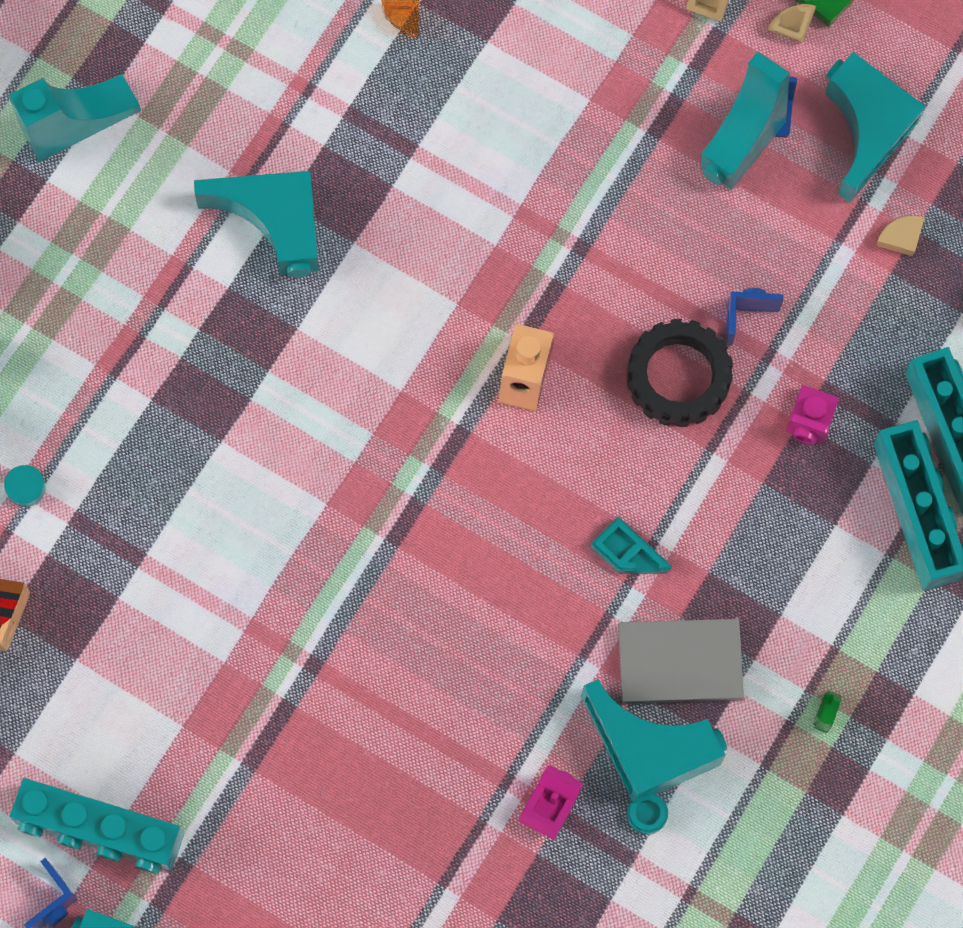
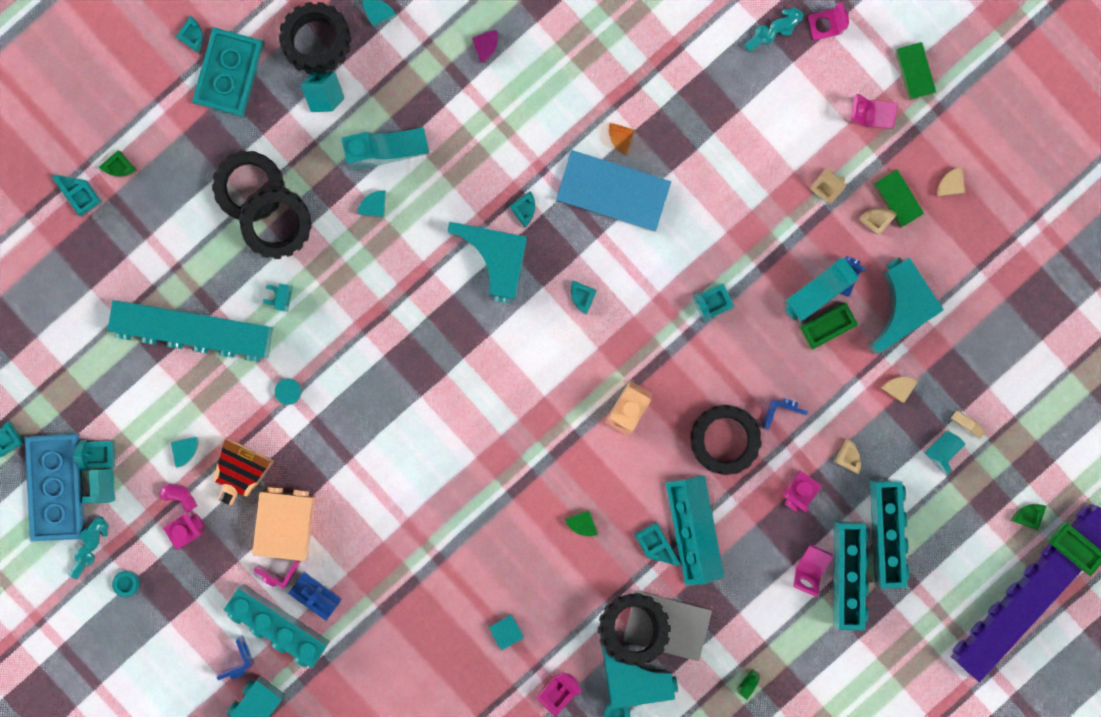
camera: 20 degrees right, 15 degrees up
(68, 673) = (283, 524): none -> light nougat brick
(73, 759) = (272, 578): none -> dark pink bracket
(79, 196) = (373, 204): none -> teal tile
(143, 763) = (315, 596): none -> blue hips
(295, 144) = (524, 208): none -> teal tile
(413, 237) = (582, 296): none -> teal tile
(414, 86) = (613, 190): none -> dark azure tile
(445, 740) = (506, 632): none -> teal tile
(510, 551) = (582, 524): none -> green tile
(601, 194) = (713, 302): none -> teal tile
(642, 633) = (659, 622): none -> black tyre
(676, 512) = (695, 530): none -> teal panel
(773, 181) = (828, 326): none -> green tile
(864, 350) = (849, 457): none -> tan tile
(864, 513) = (811, 569): none -> dark pink bracket

